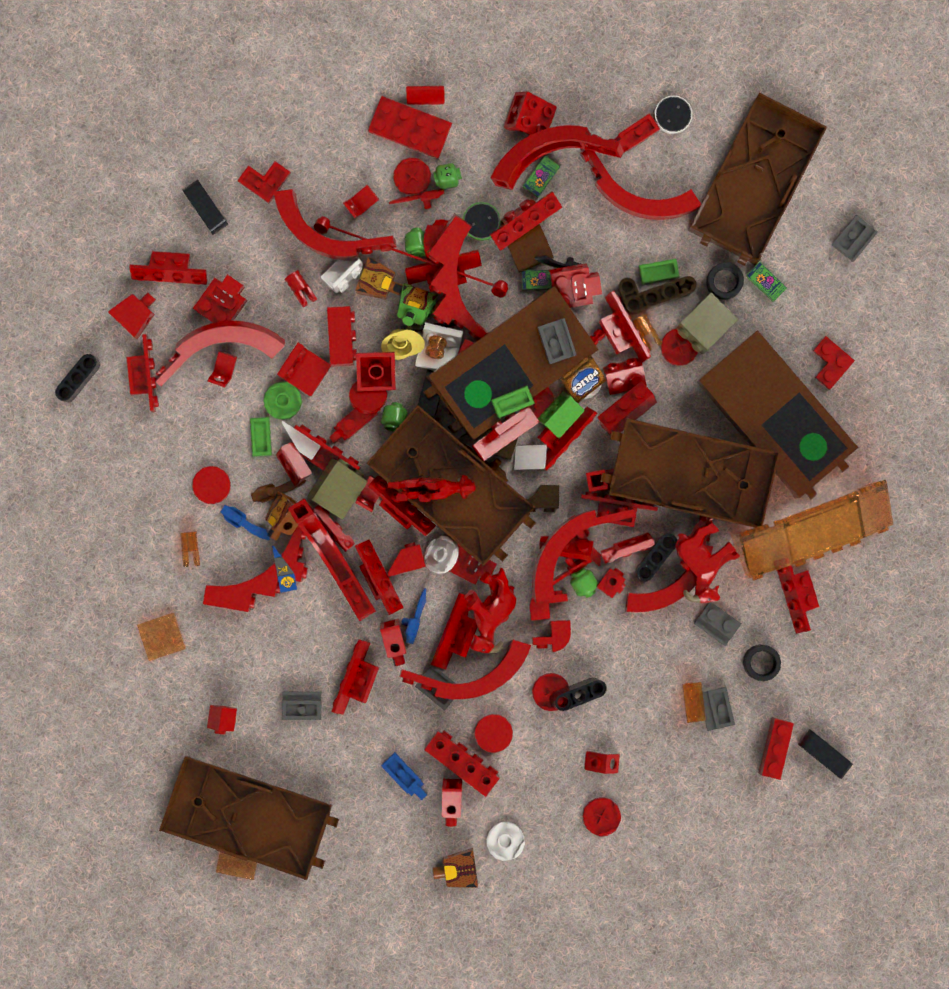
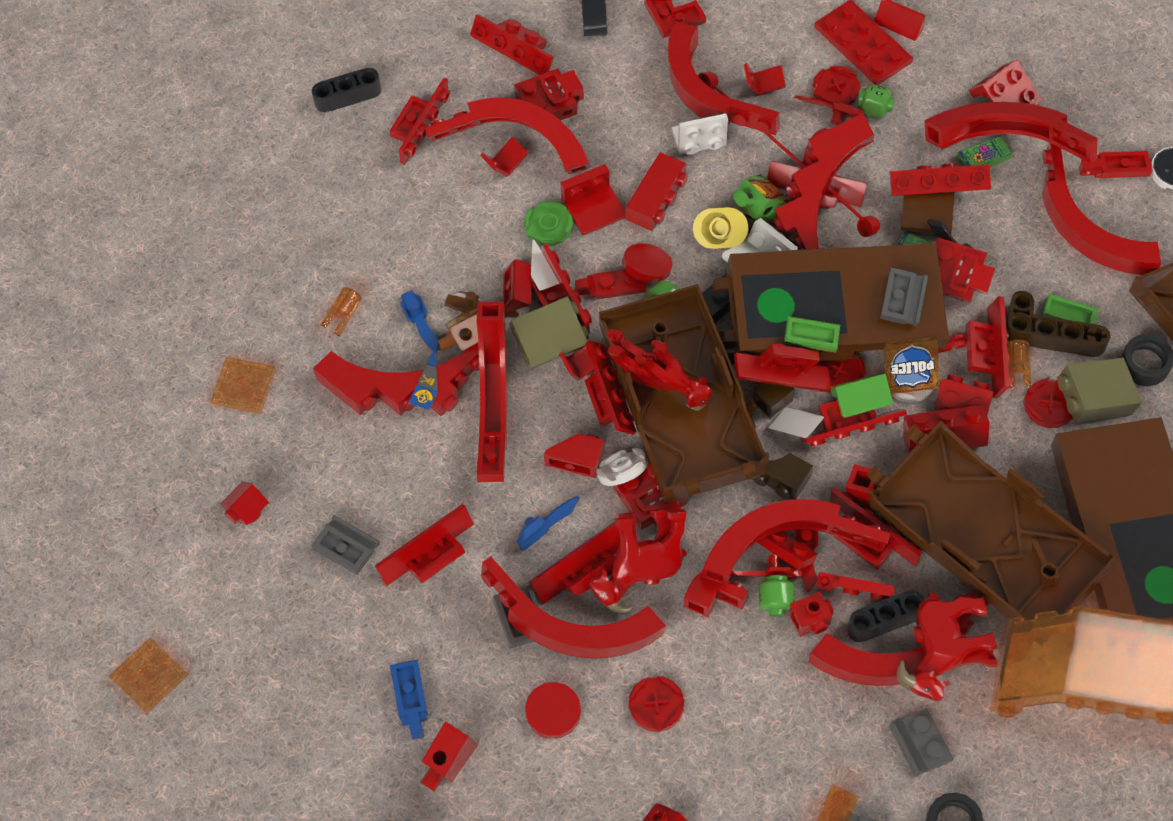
camera: 35 degrees right, 25 degrees down
(134, 313) = (449, 61): red torso -> none
(211, 485) = (411, 264): red tile -> none
(247, 818) = (191, 631): reddish brown piece -> none
(261, 436) = (499, 245): bright green tile -> none
(298, 285) = (643, 124): red hinge -> none
(334, 529) = (515, 376): red hinge -> none
(375, 371) = (673, 238): red slope -> none
(377, 281) = (731, 158): torso -> none
(377, 577) = (530, 449): red bracket -> none
(392, 634) = (504, 518): red torso -> none
(415, 242) = (797, 143): bright green head -> none
(436, 347) = (758, 243): clear orange wheel -> none
(462, 763) = (491, 721): red brick -> none
(483, 220) = (885, 158): black tile -> none
(559, 636) = (704, 642): red brick -> none
(587, 694) = (701, 714): black beam -> none
(799, 596) = (1051, 762): red bracket -> none

